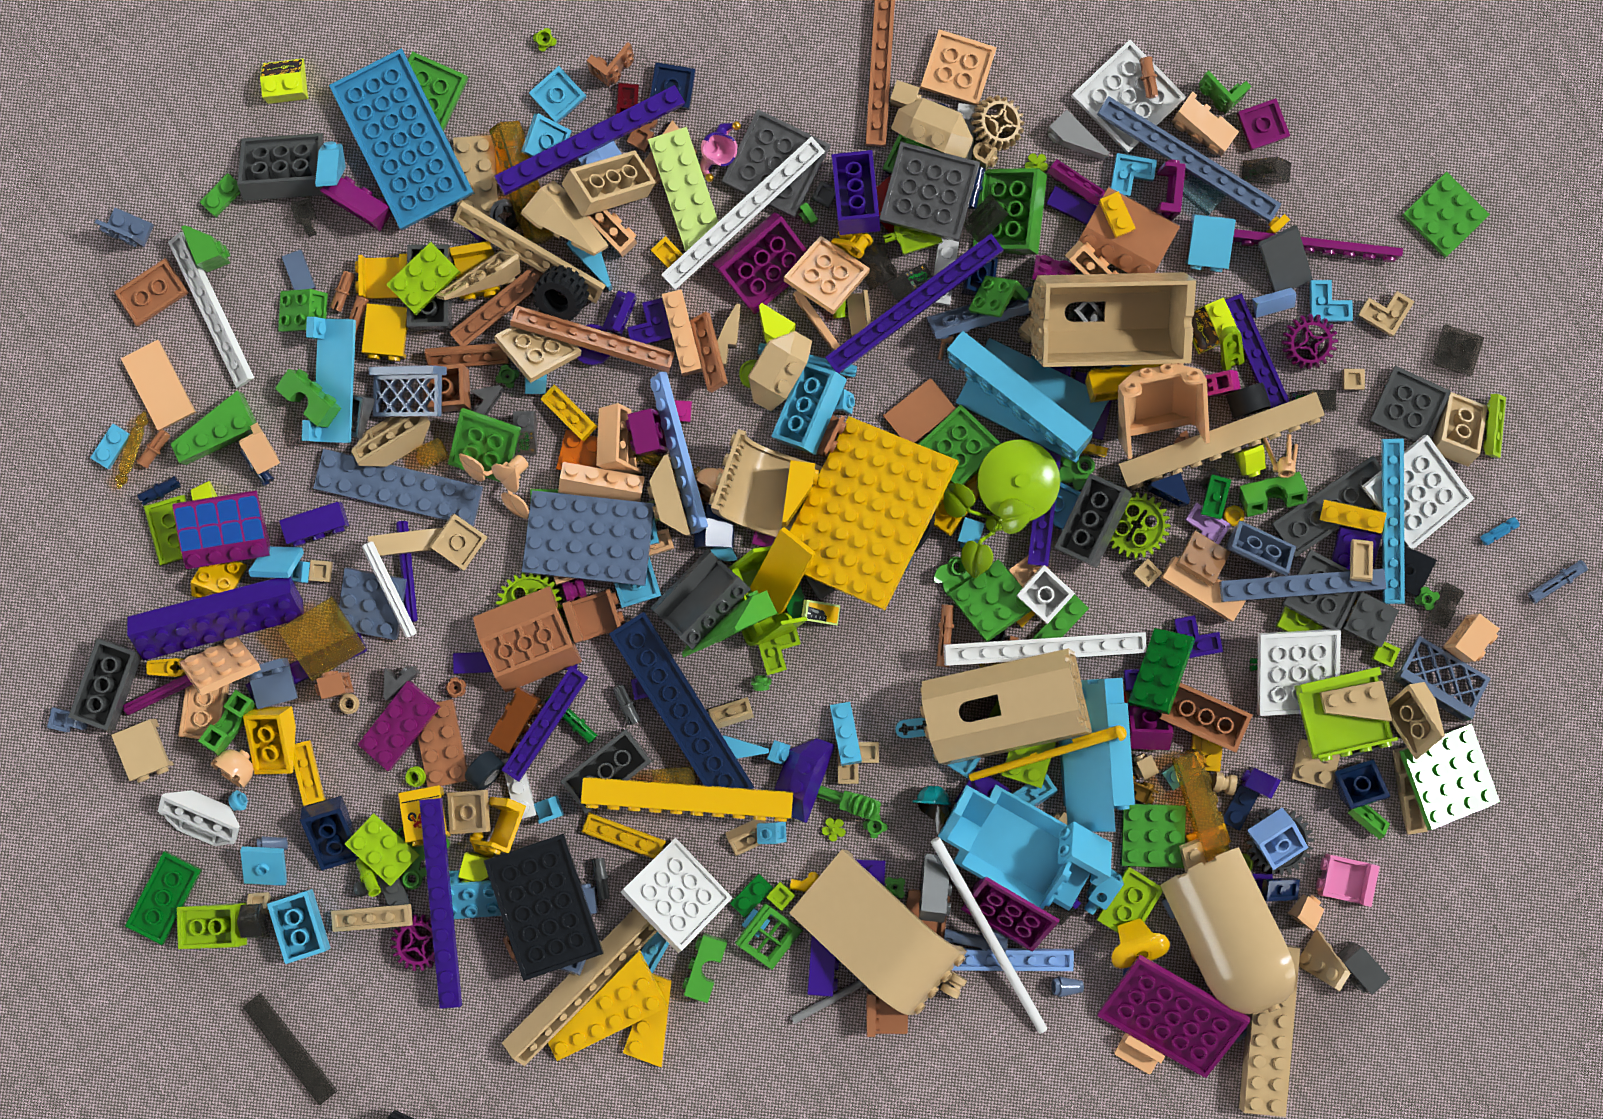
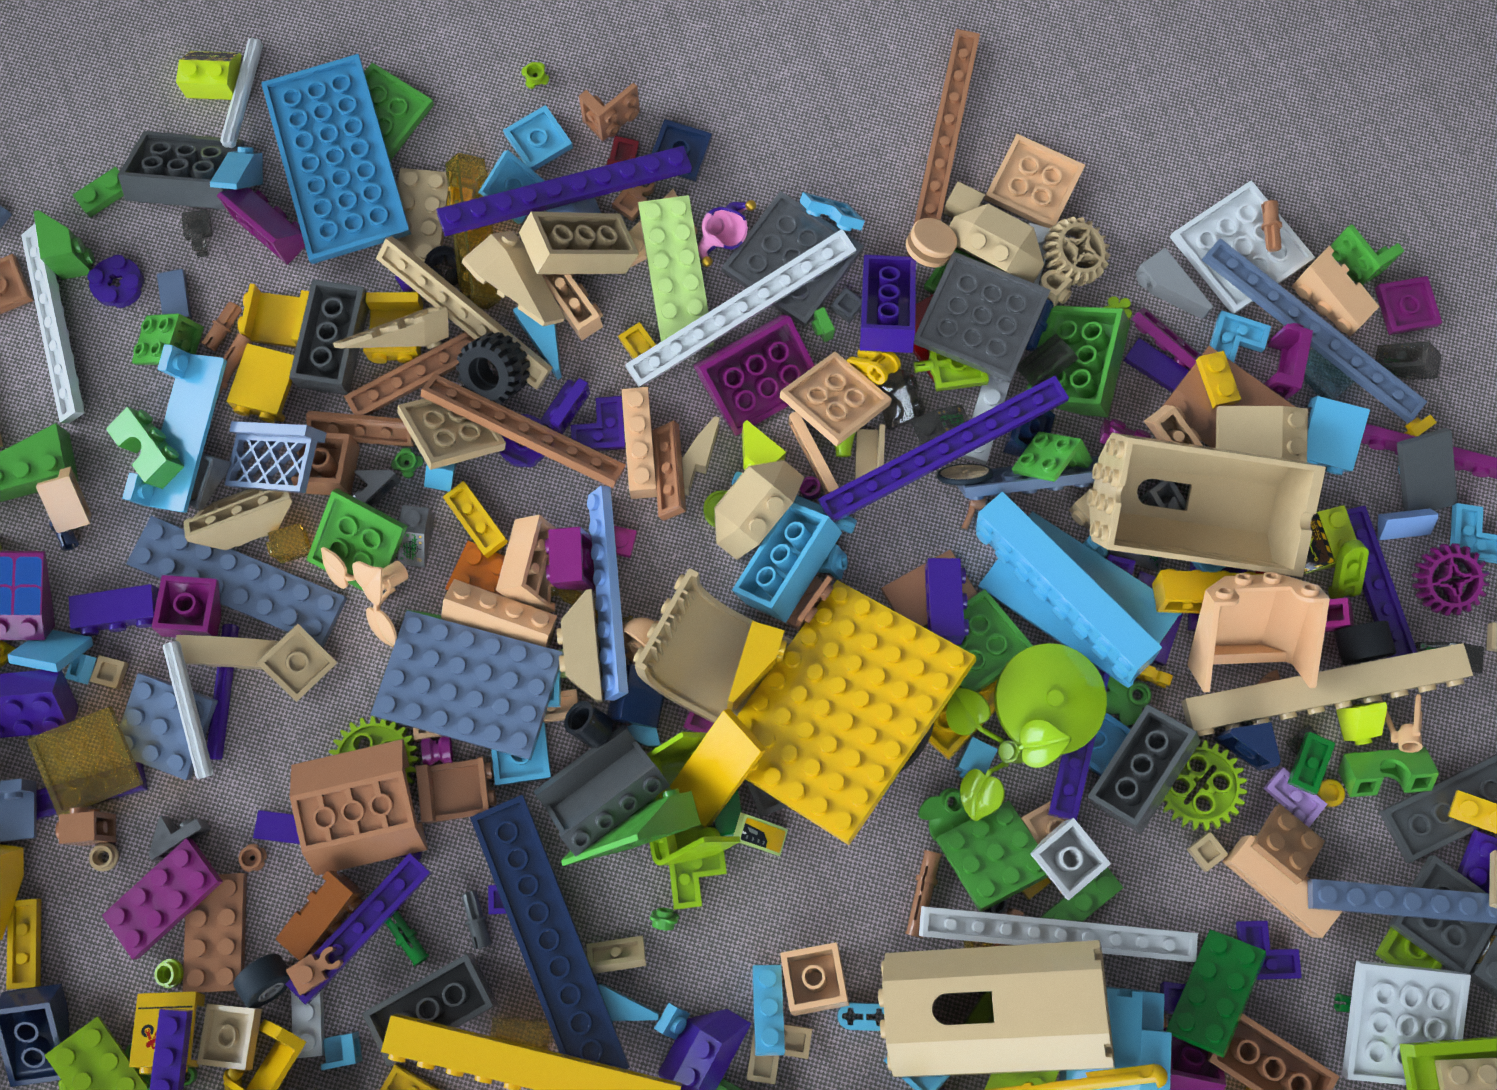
camera: 10 degrees right, 10 degrees down
(251, 279) = (109, 269): none -> dark purple plate
(313, 108) = (241, 93): none -> white axle
(369, 514) = (187, 607): none -> magenta slope
(423, 278) = (322, 320): lime plate -> none
(518, 759) = (311, 971): none -> nougat plate
(682, 553) = (588, 724): none -> black piece
(806, 119) = (838, 211): none -> medium azure plate
(815, 346) = (807, 485): none -> magenta hinge
(875, 707) = (814, 979): none -> light nougat brick
(882, 136) = (931, 242): none -> light nougat head
(932, 418) = (945, 598): none -> dark purple brick
(933, 318) = (964, 474): none -> wheel
(1153, 253) = (1263, 430): none -> tan slope
(1261, 548) = (1367, 843): sand blue slope -> none

